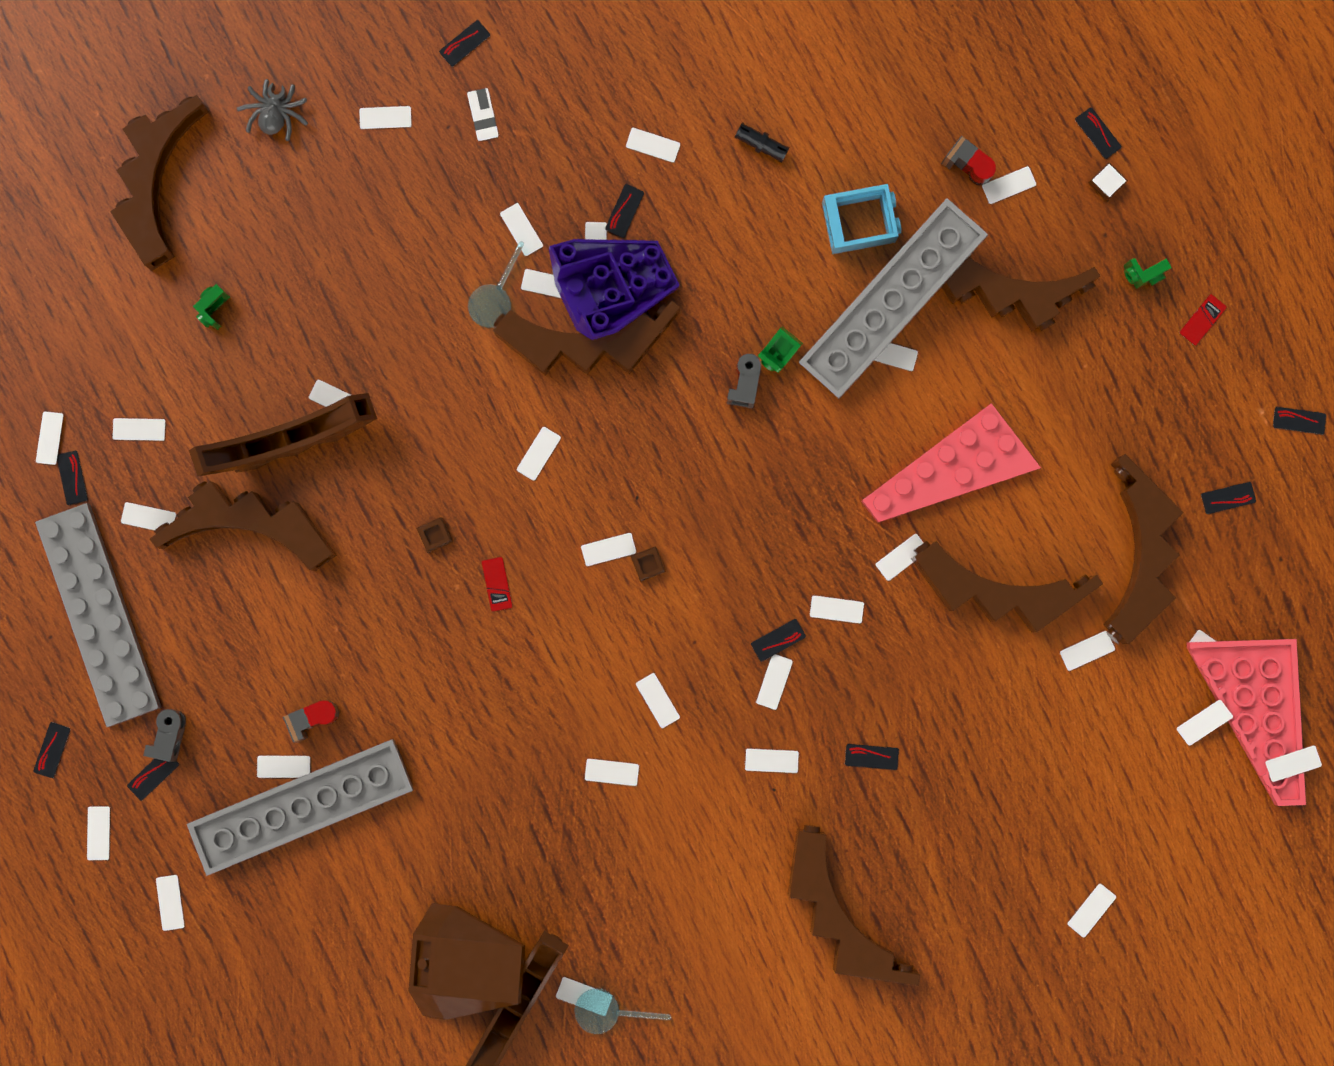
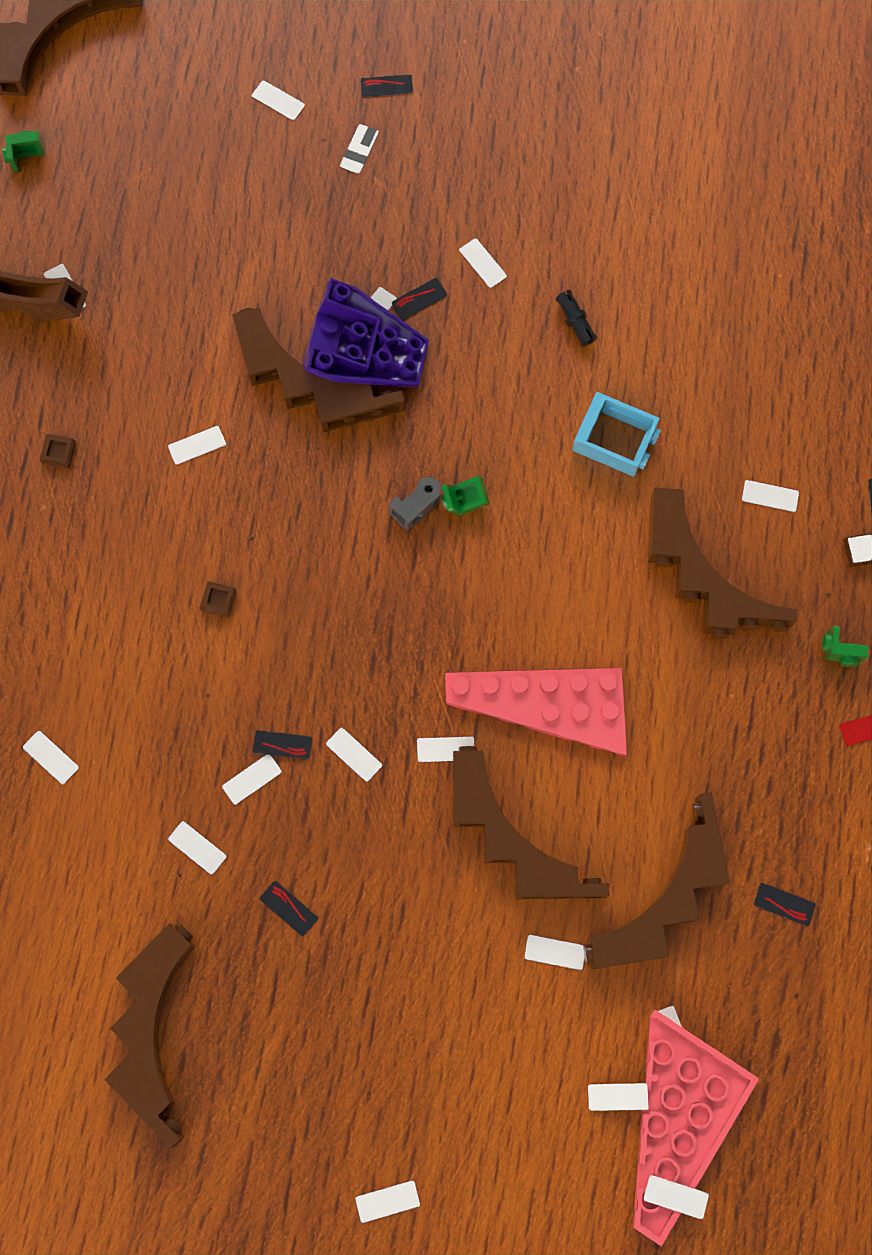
camera: 35 degrees right, 10 degrees down
(273, 109) = (192, 35): dark grey animal -> none
(491, 300) = (254, 294): clear light blue piece -> none
(496, 584) = (78, 528): red sticker -> none
(521, 229) = (321, 257): white sticker -> none
(539, 283) = (303, 308): white sticker -> none
(608, 549) = (194, 564): white sticker -> none
(657, 700) = (137, 723): white sticker -> none
(893, 298) = (595, 516): light grey plate -> none
(898, 357) = (562, 567): white sticker -> none
(971, 161) = (748, 450): leg -> none

